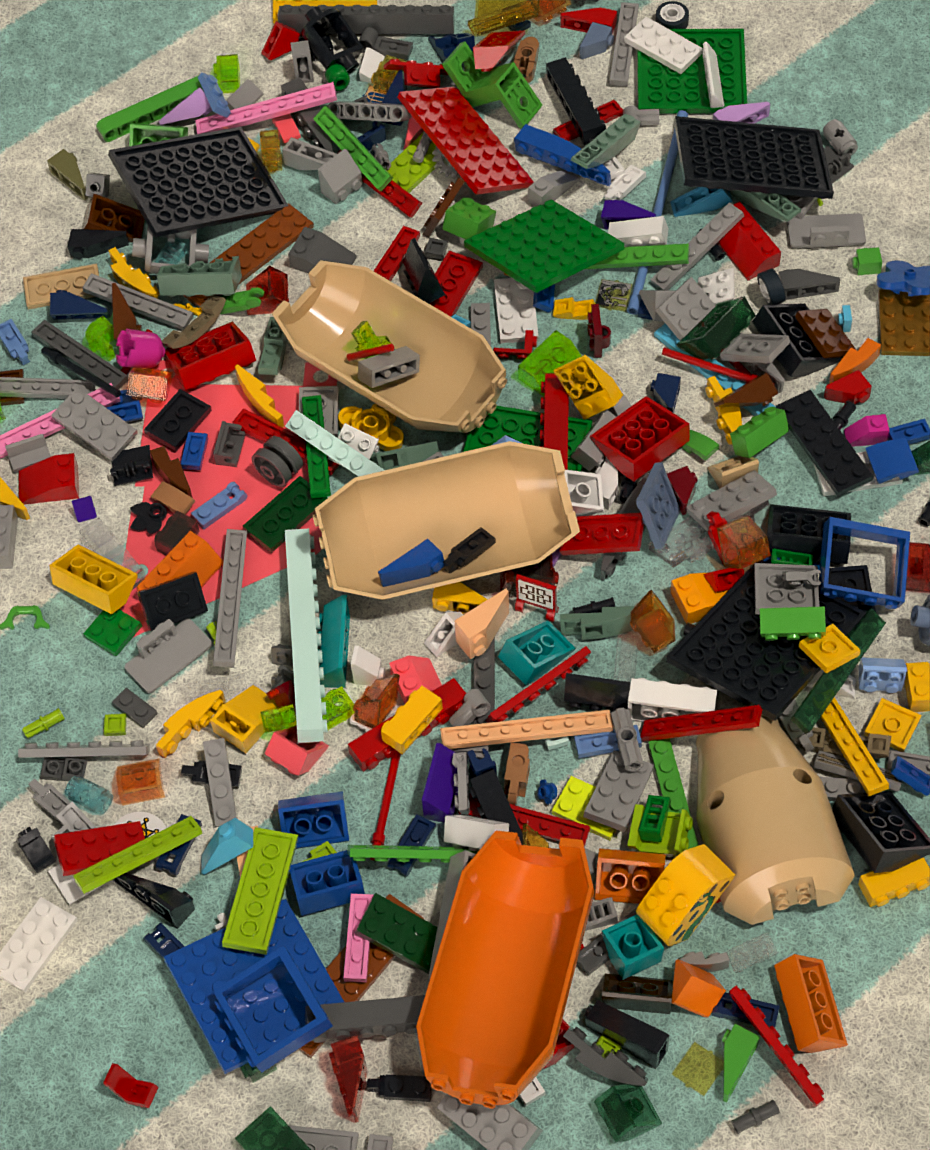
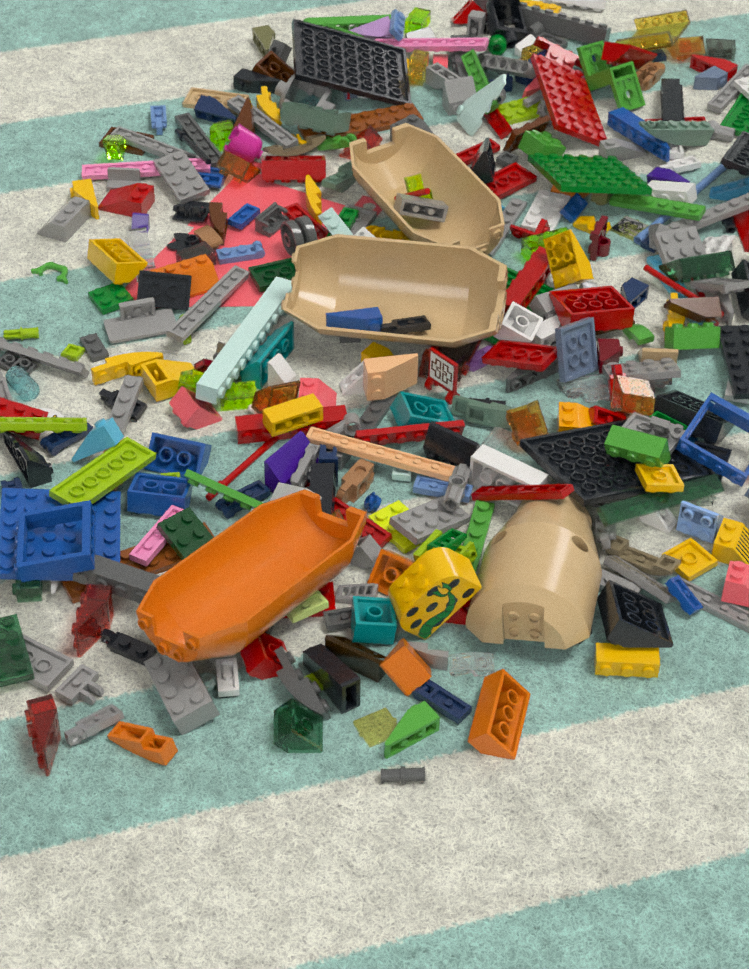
camera: 20 degrees right, 15 degrees down
(140, 782) = (64, 390): clear orange slope -> none
(176, 419) = (250, 192): black plate -> none
(371, 190) = (473, 109): none -> light aqua wedge
(782, 1052) = (454, 737): red plate -> none
(853, 749) = (642, 555): yellow plate -> none

